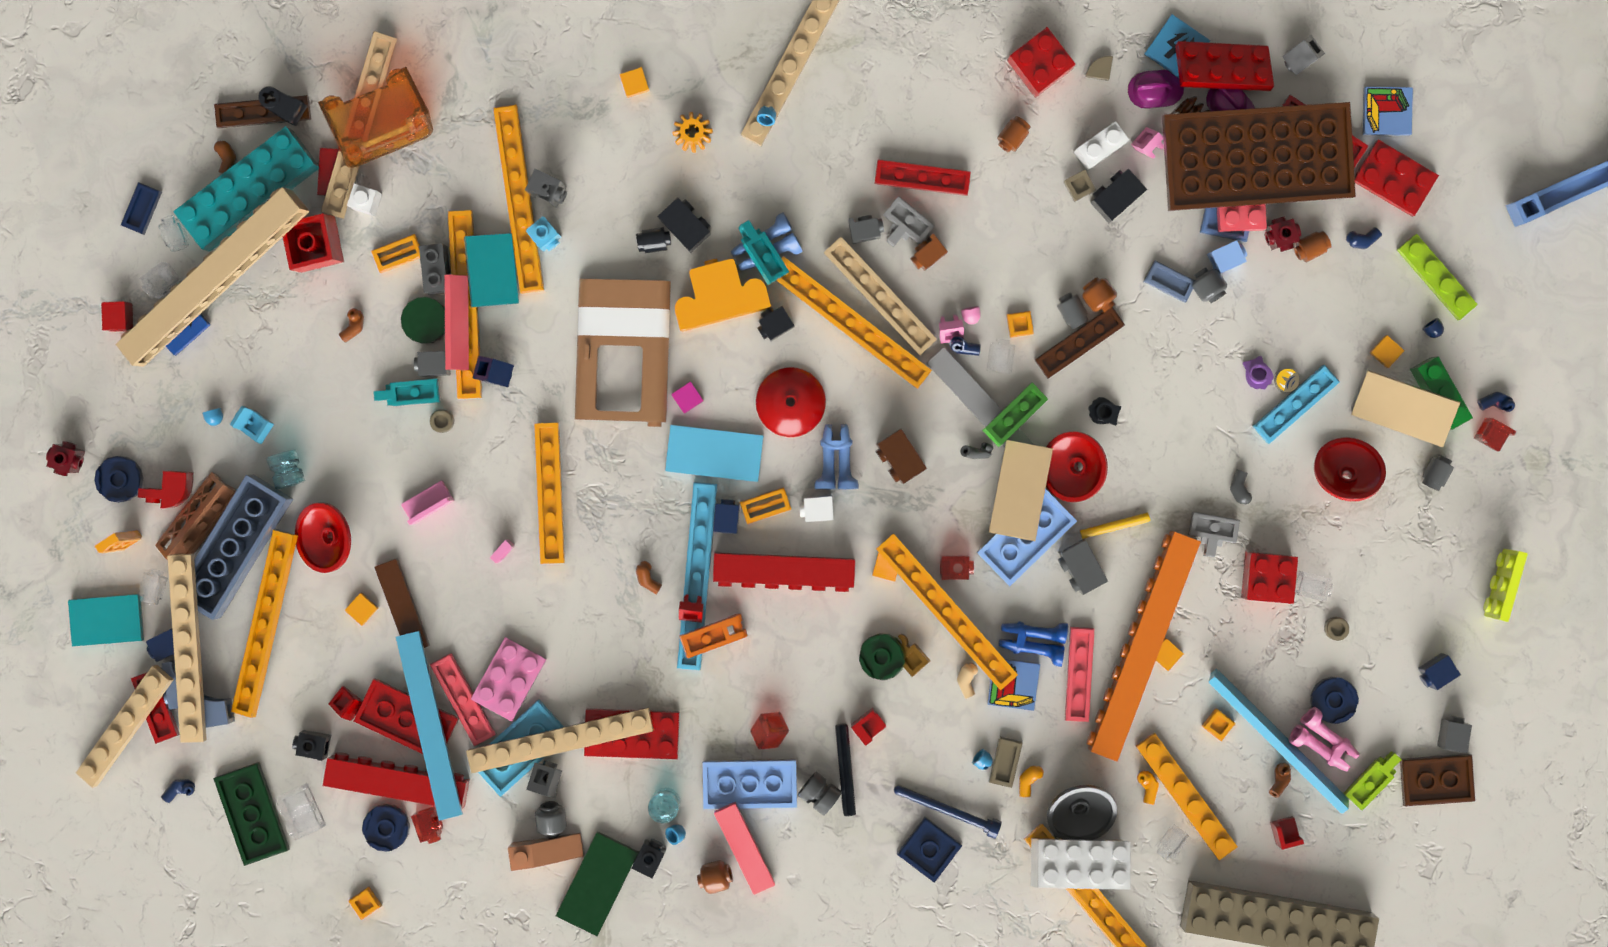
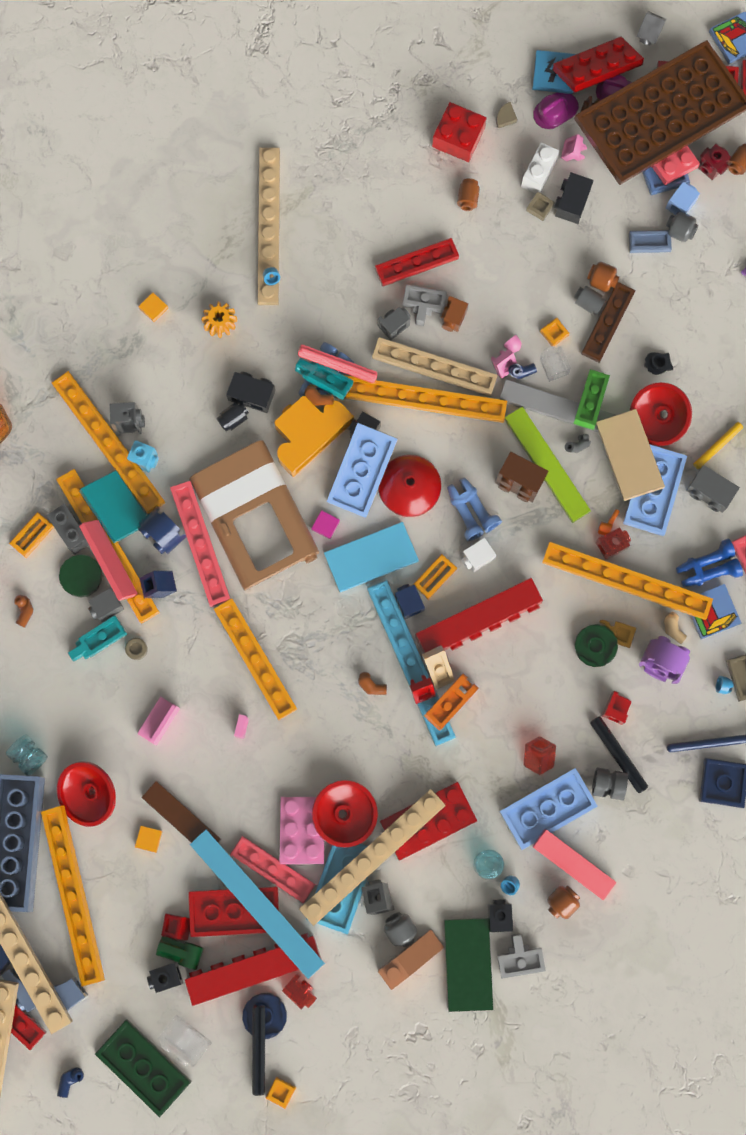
camera: 25 degrees left, 10 degrees down
(341, 734) = (185, 953): none -> dark green piece
(363, 856) = (258, 1050): none -> black axle
(522, 321) = (161, 530): none -> dark blue brick
(555, 351) = (200, 543): none -> coral plate
(557, 702) = (359, 810): none -> red dish
(647, 906) = (520, 959): none -> light grey hinge
(718, 597) = (438, 667): none -> tan plate
(743, 270) = (316, 398): none -> dark orange arm
(750, 364) = (362, 470): none -> light blue plate
(782, 245) = (337, 363): none -> coral axle
(883, 569) = (557, 576): light orange tile -> none
(936, 454) = (541, 455): none -> lime tile
(937, 707) = (665, 660): none -> medium lavender brick
(957, 548) = (605, 528): none -> orange hand

